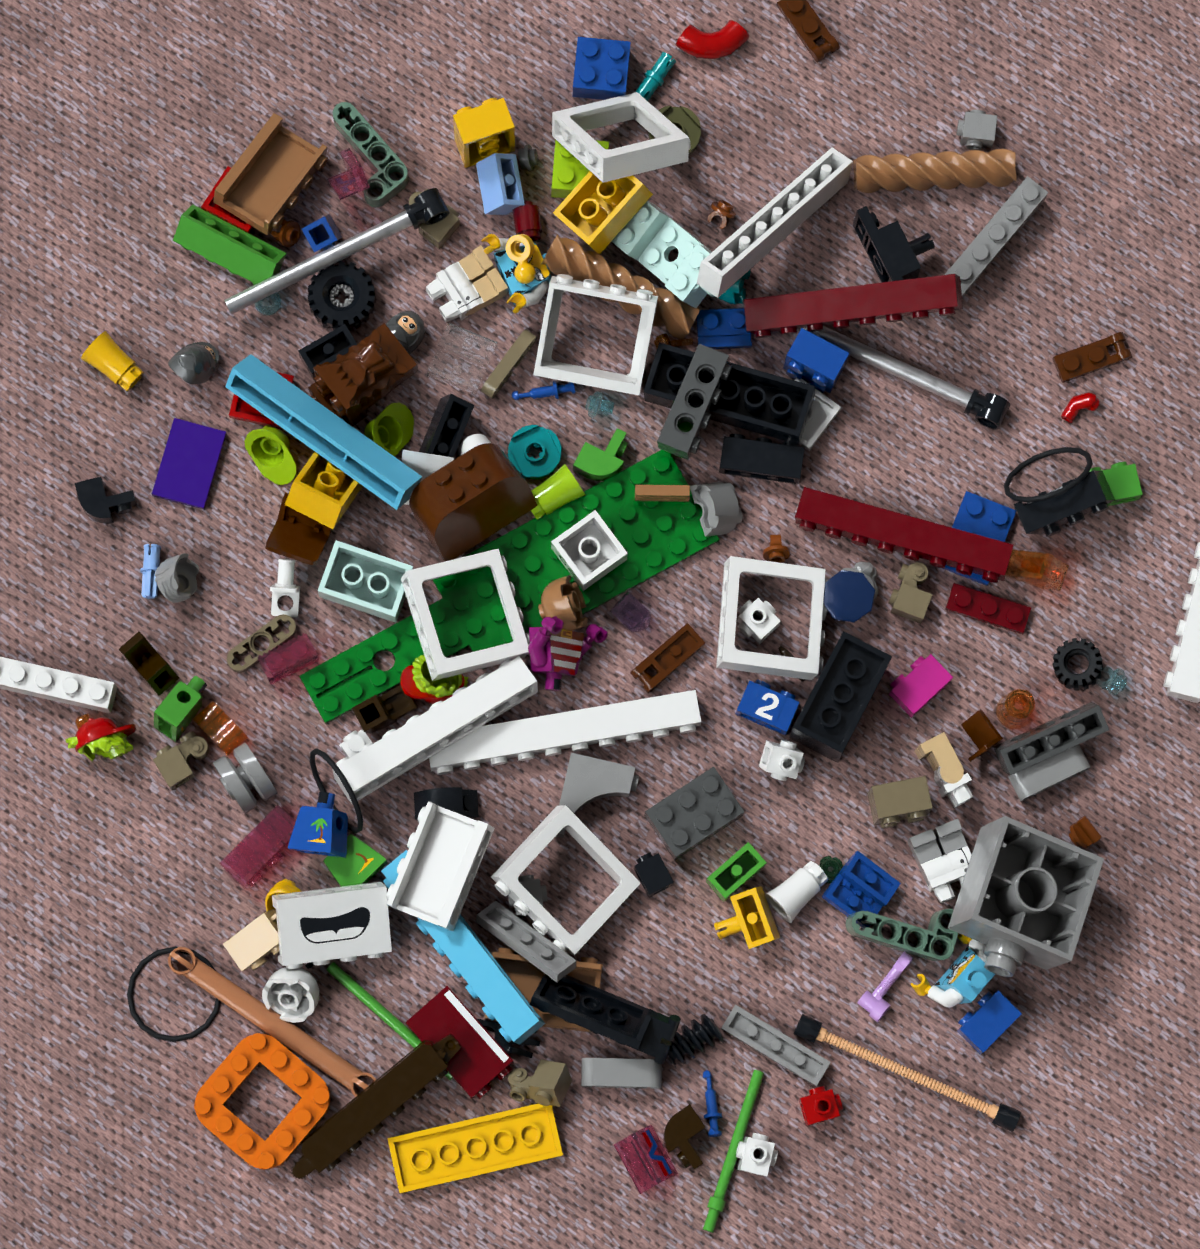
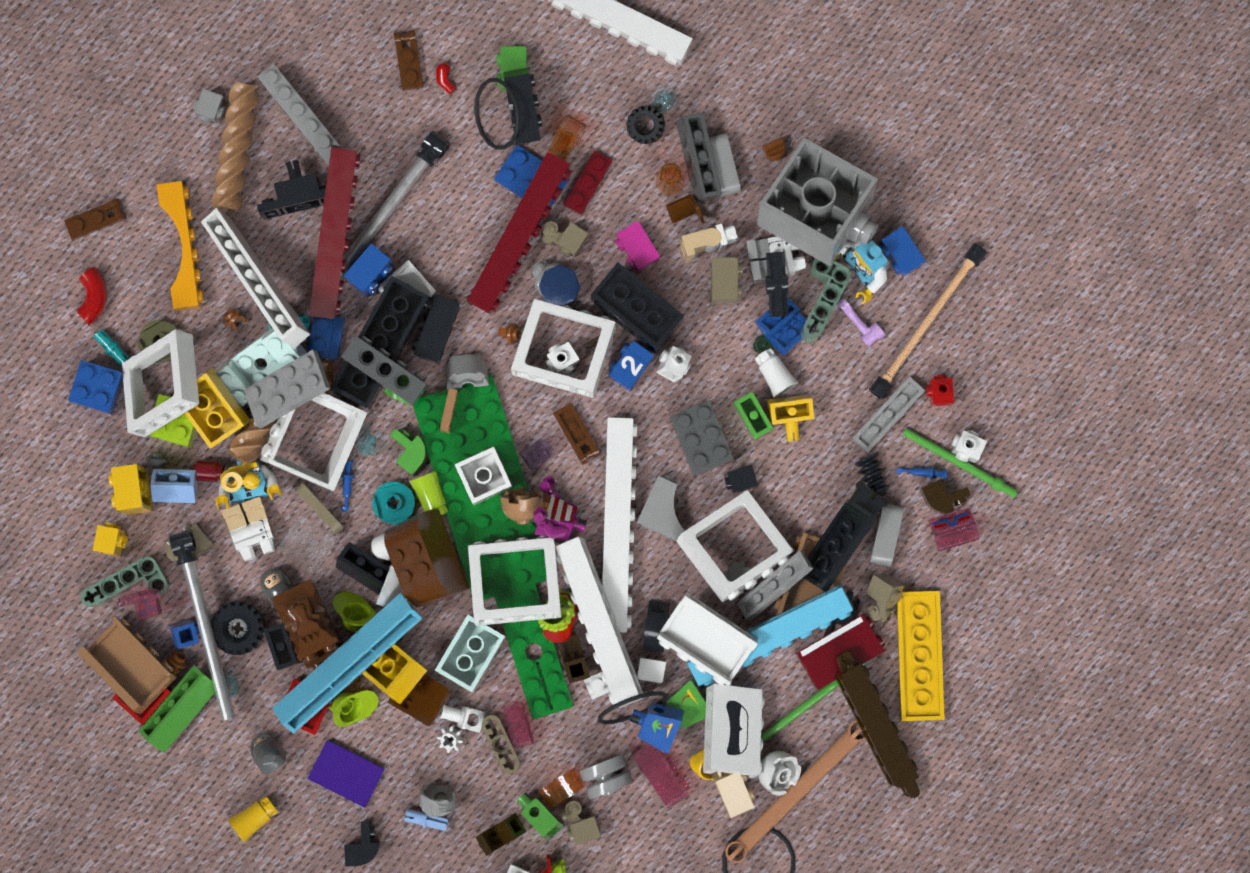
camera: 75 degrees left, 5 degrees up
(261, 585) = (449, 745): none -> white gear
(293, 1128) = (874, 836): orange plate -> none
(389, 808) = (651, 670): none -> white panel
(418, 122) = (110, 539): none -> yellow brick
(644, 286) = (286, 389): none -> light grey plate
(746, 148) = (185, 288): none -> light orange arch
(909, 866) = (776, 284): none -> black piece

